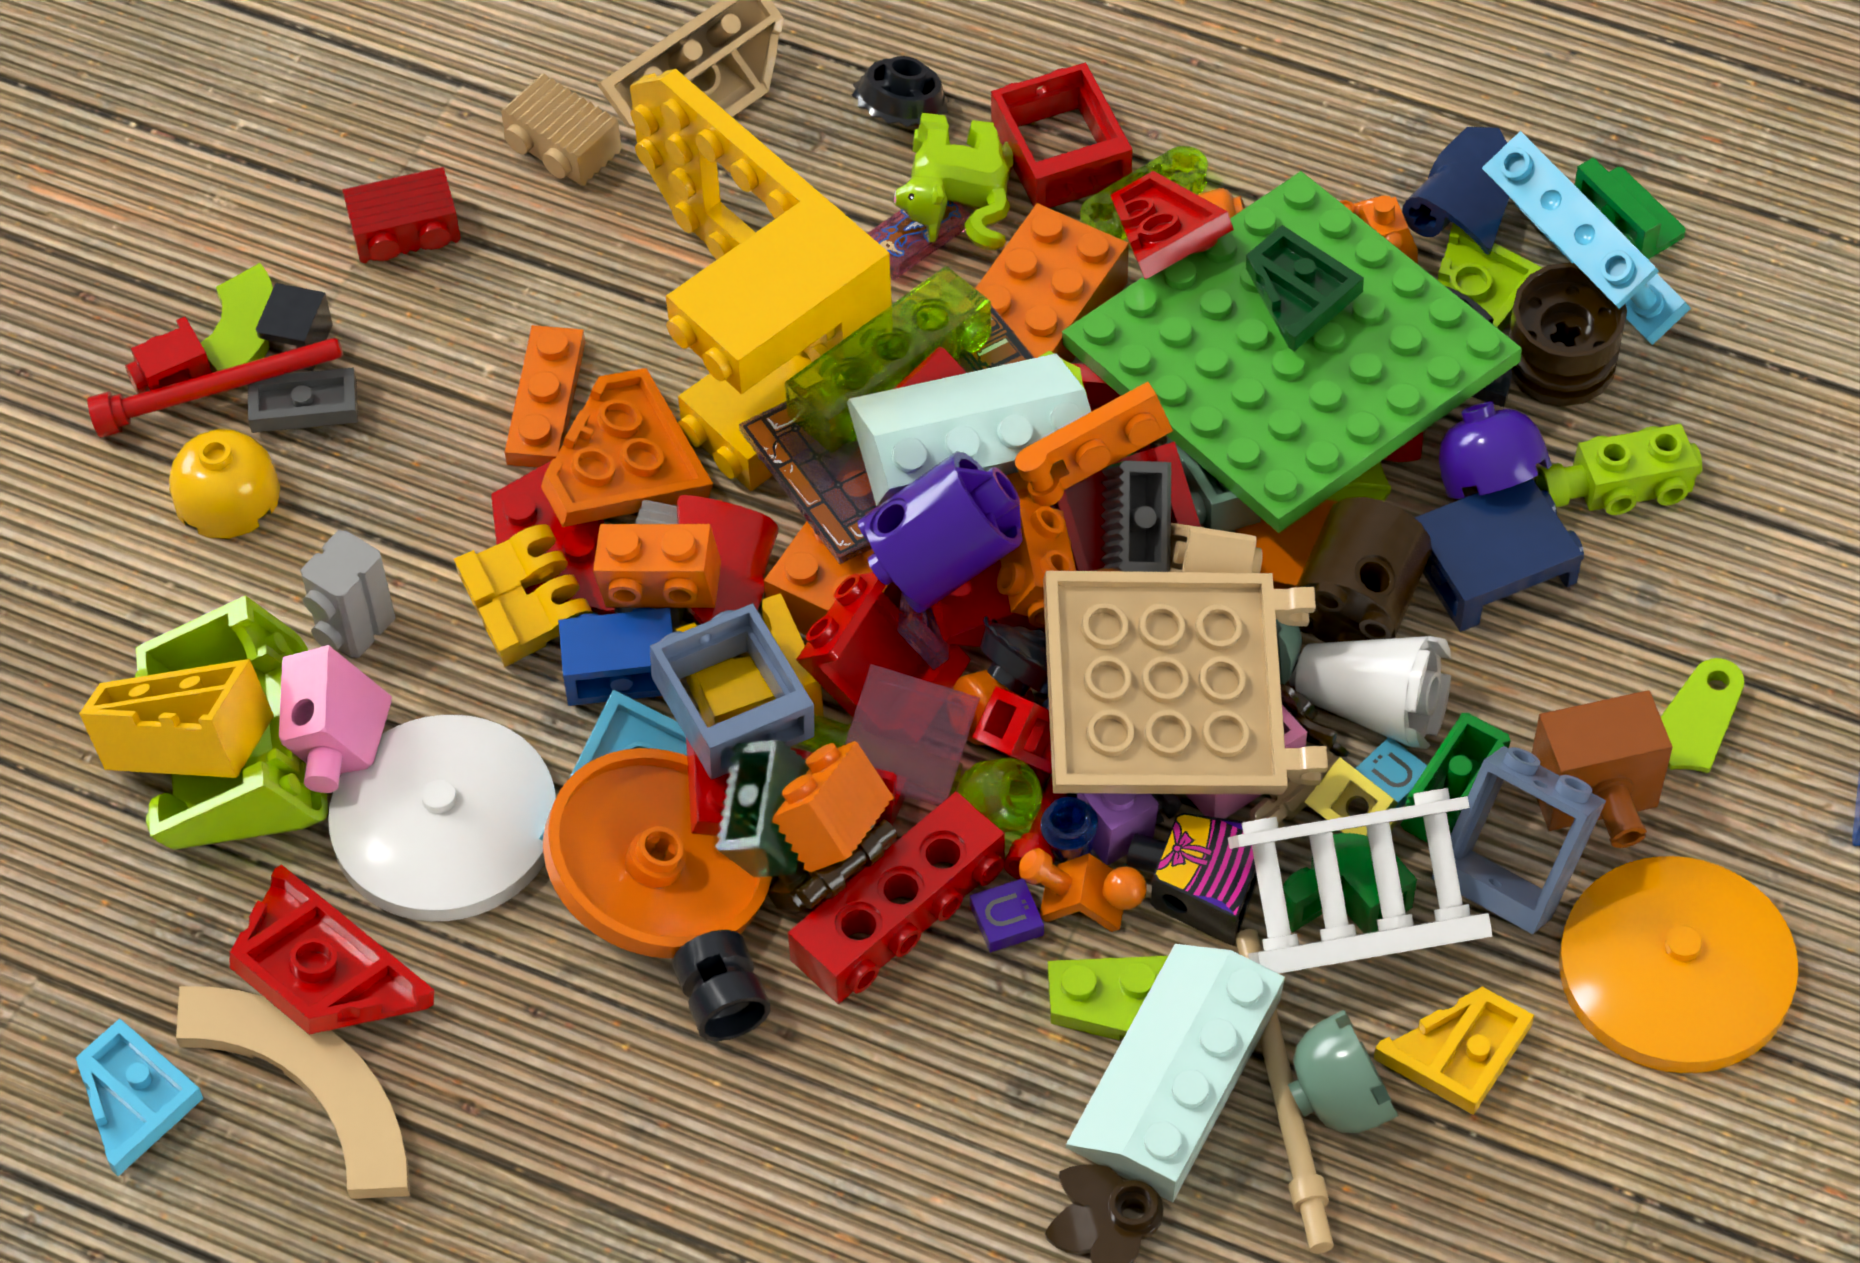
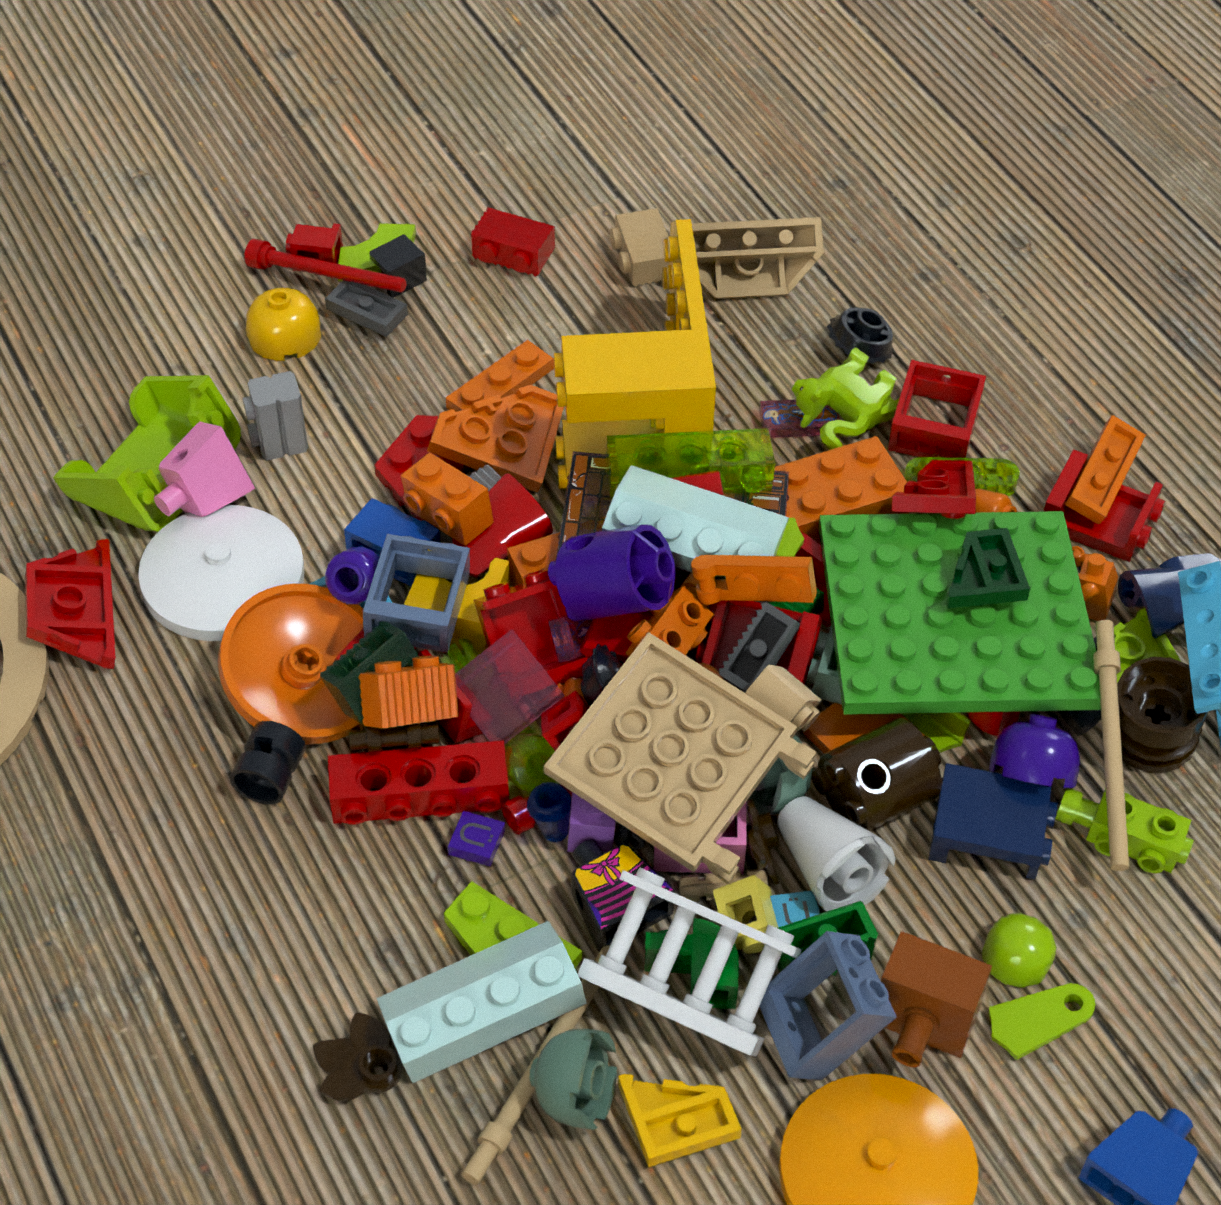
camera: 35 degrees right, 5 degrees down
(179, 720) = (123, 425): yellow wedge -> none
(496, 587) = (369, 470): yellow legs -> none
(652, 722) = (351, 574): none -> dark purple head
(1083, 886) = (532, 851): orange piece -> none
(1293, 96) = (1105, 469): none -> orange plate
(1328, 141) = (1125, 524): none -> red panel
(1496, 312) = (1108, 665): none -> tan bar
(1625, 660) = (1019, 950): none -> lime hair

